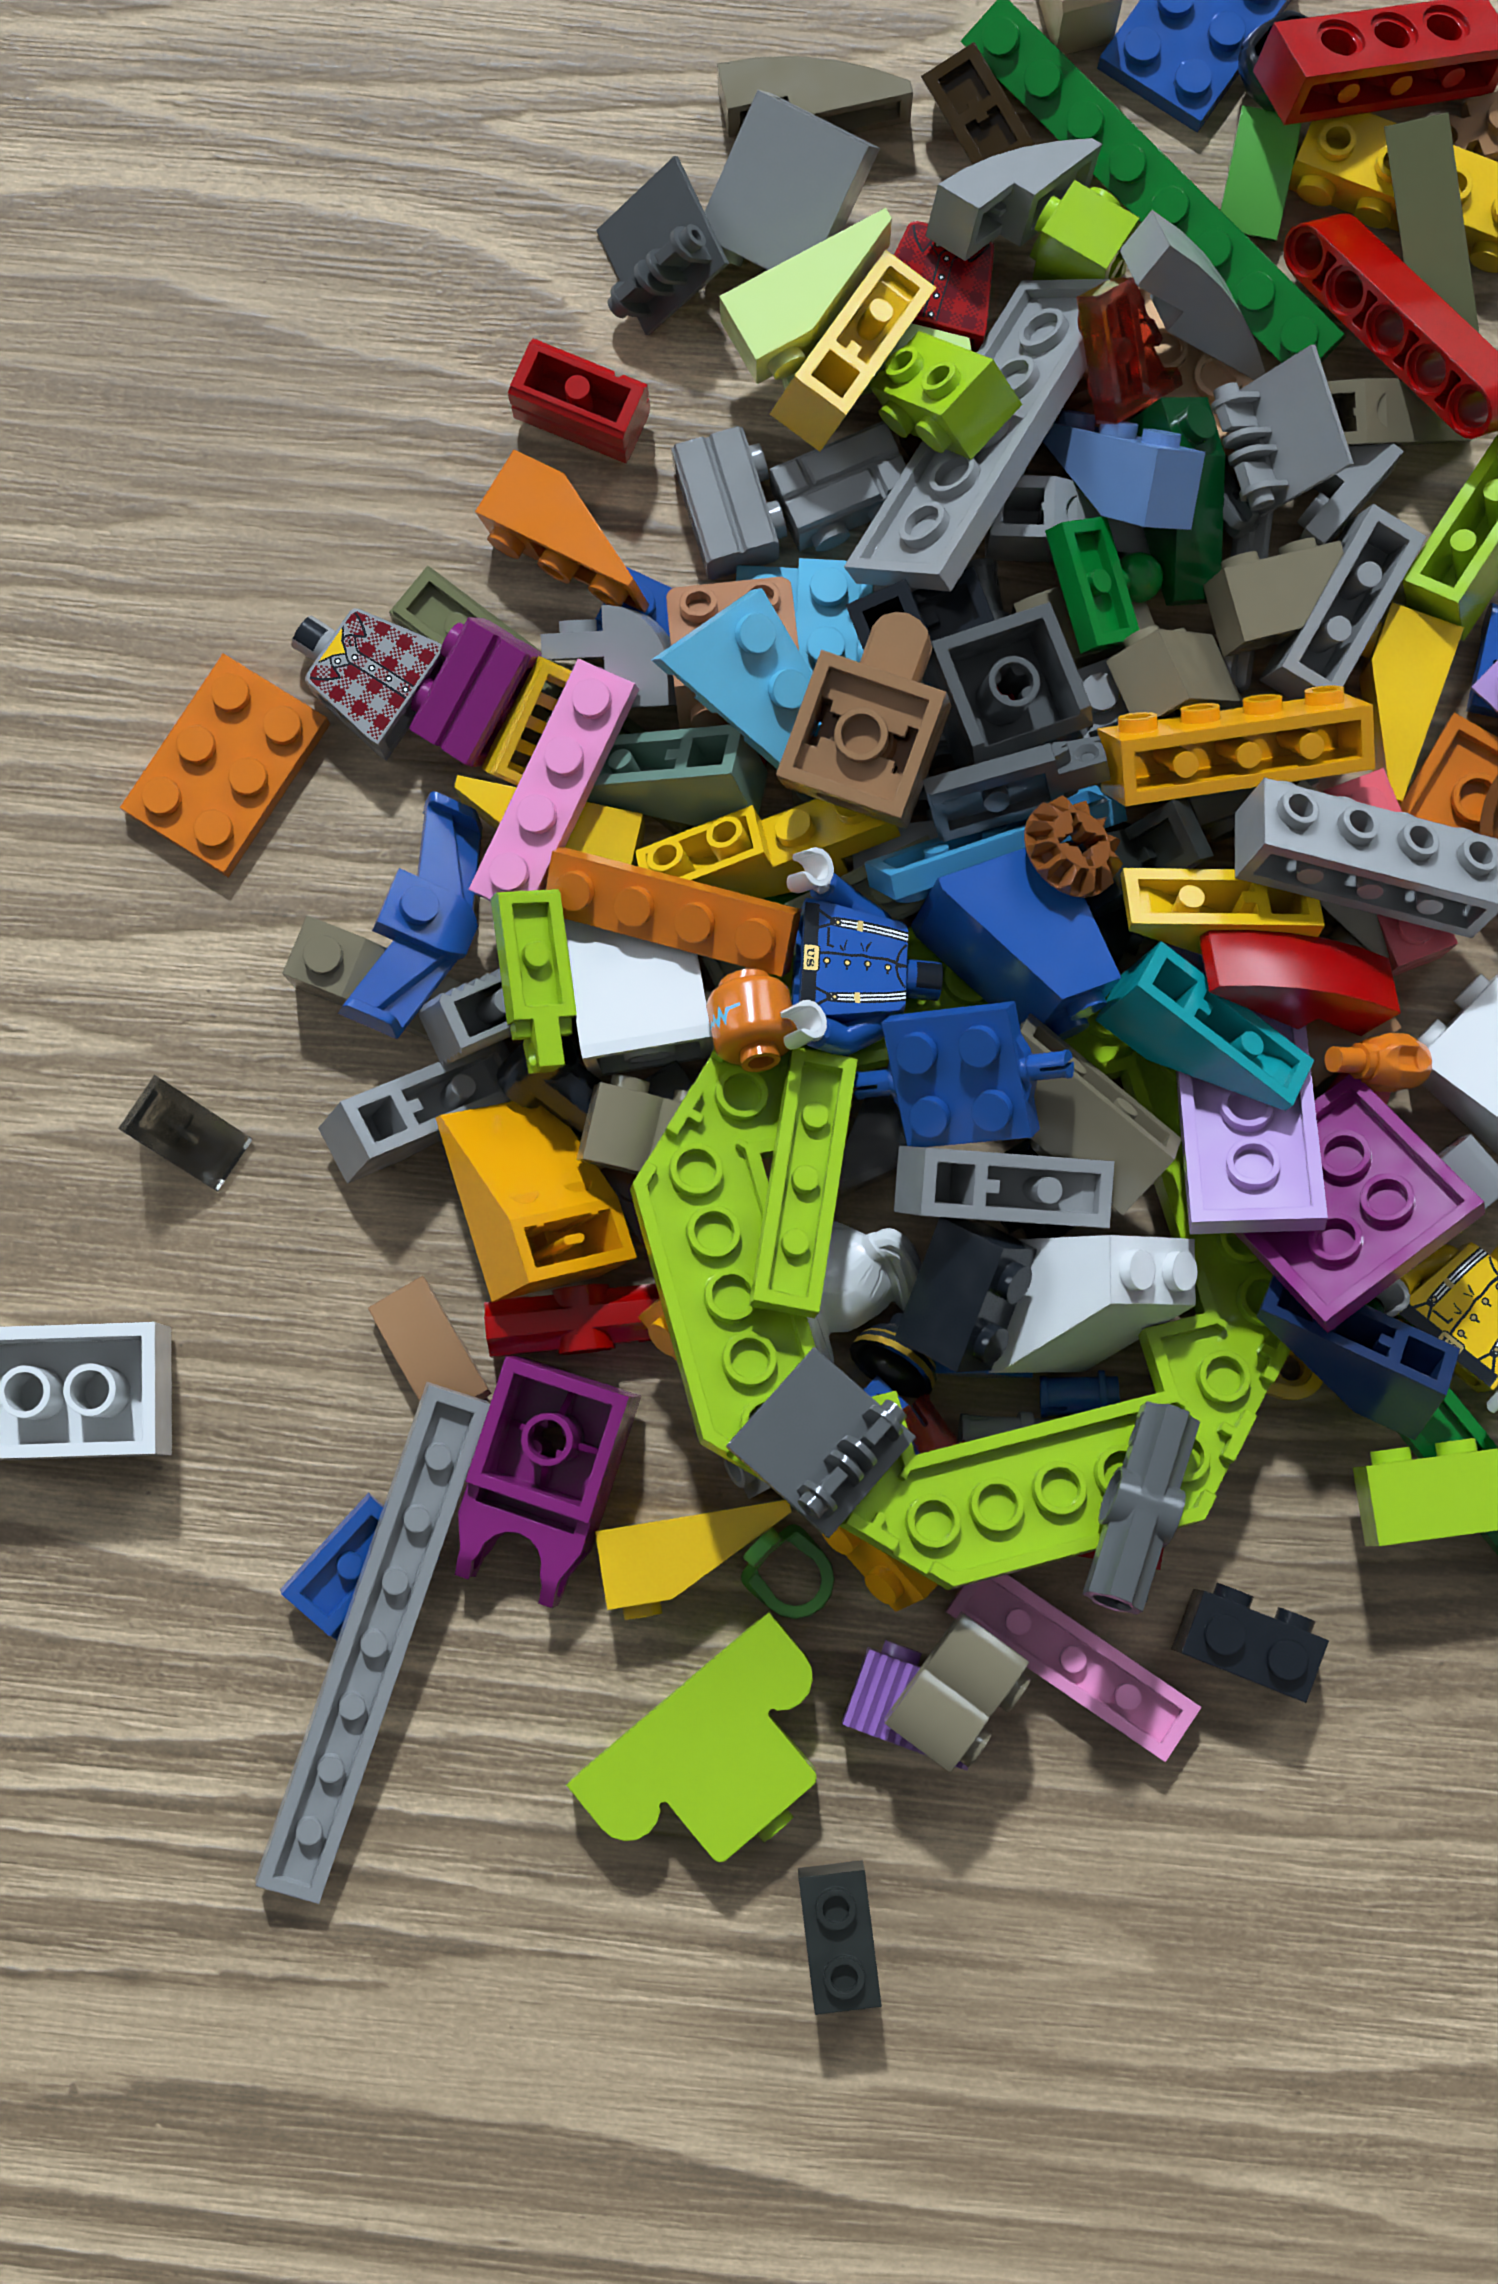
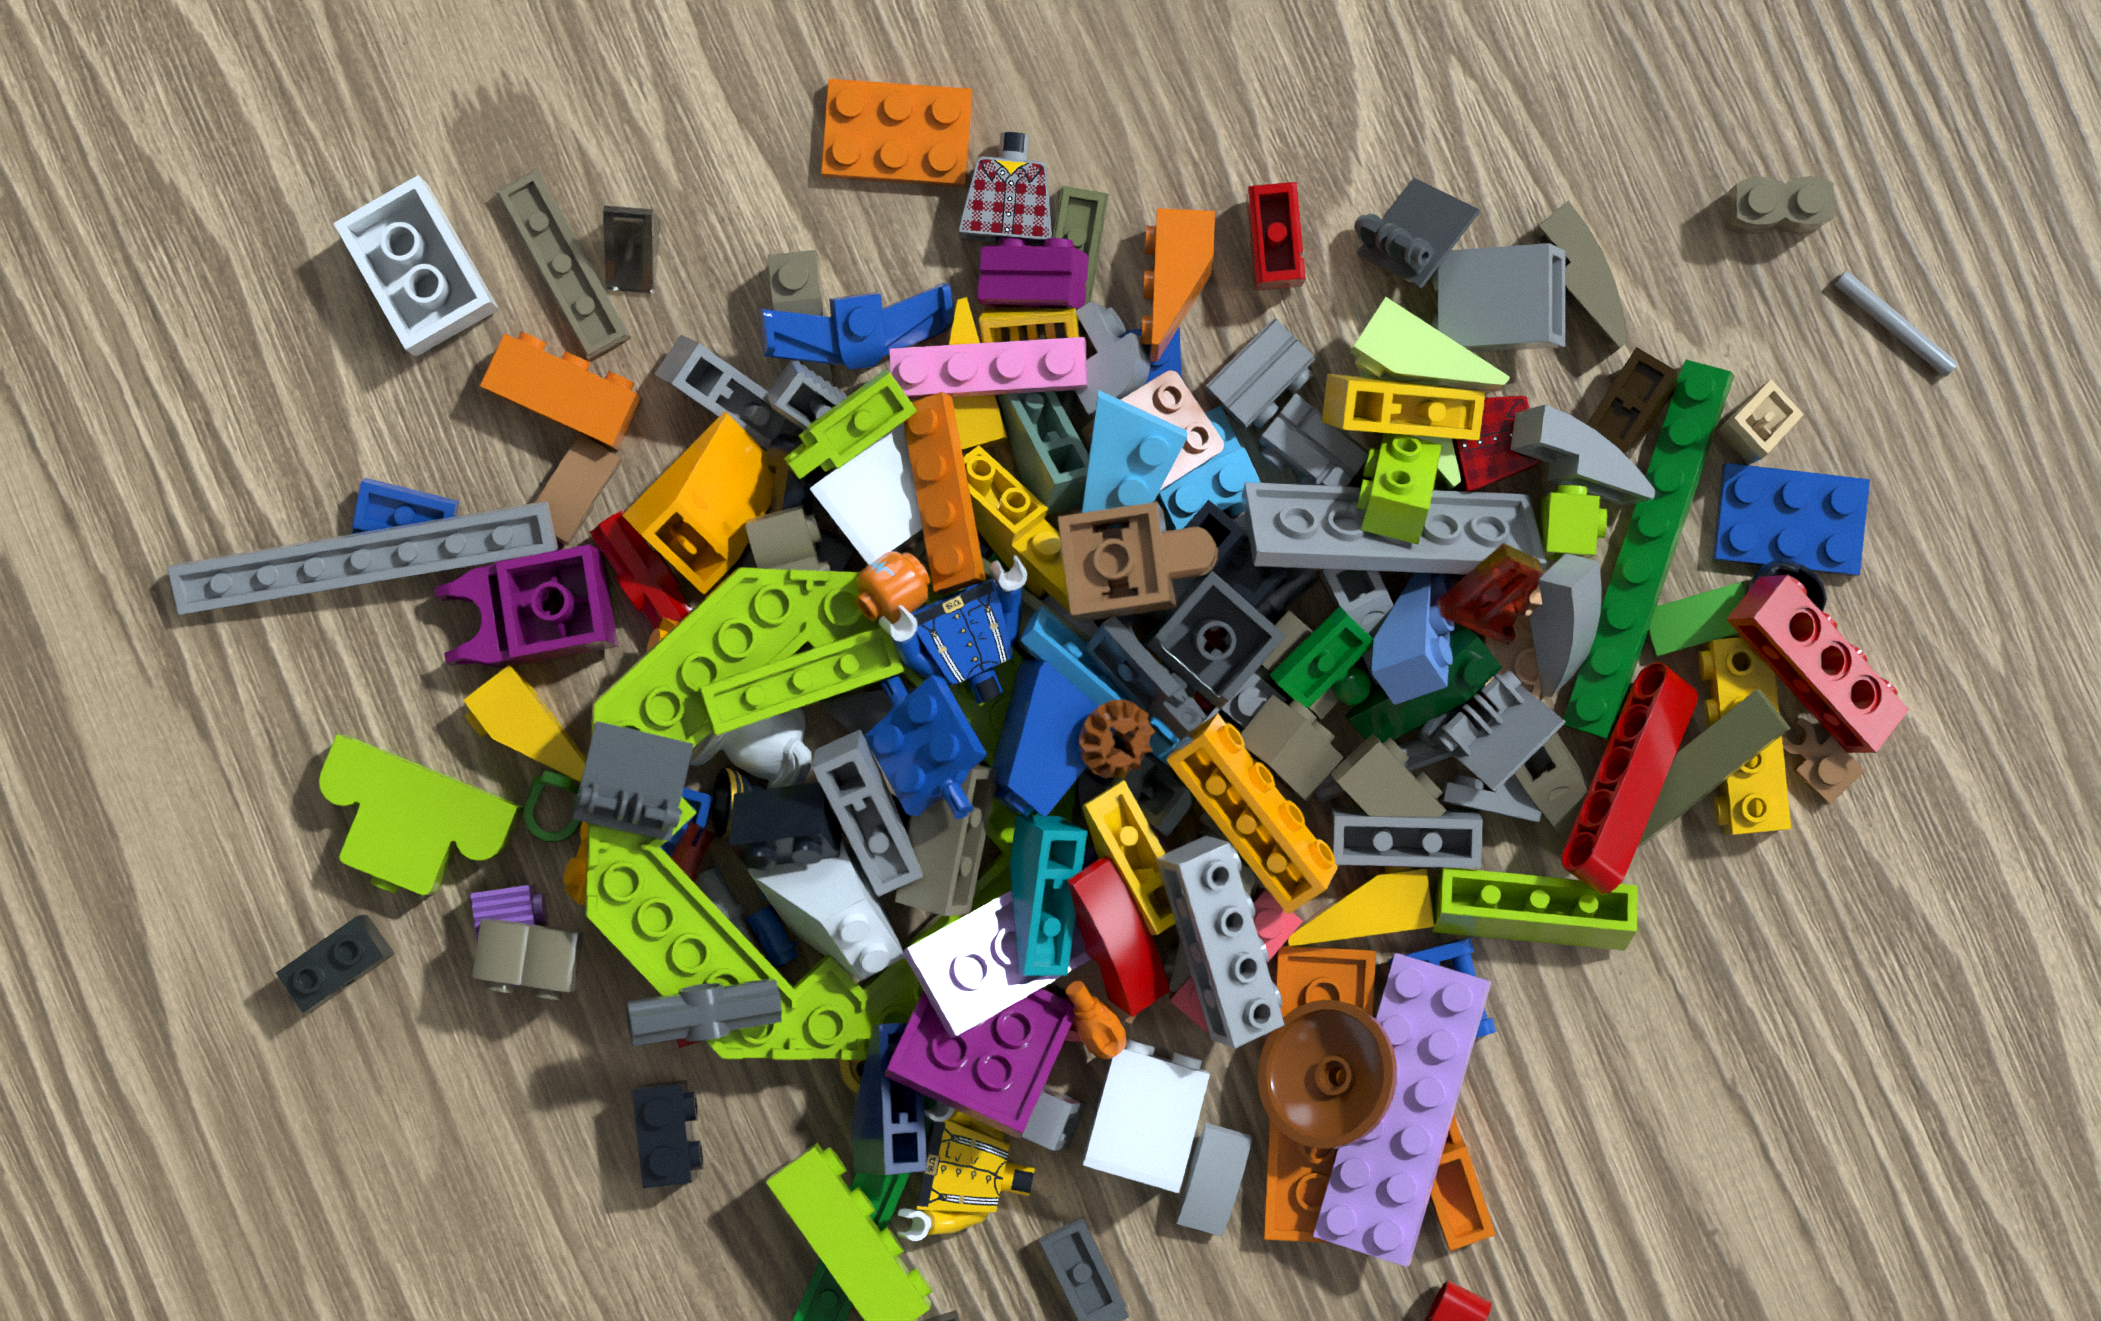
camera: 60 degrees right, 5 degrees up
(160, 1225) = (563, 264): none -> dark tan tile
(304, 1301) = (562, 389): none -> orange brick
(1080, 1663) = (594, 1029): bright pink plate -> none

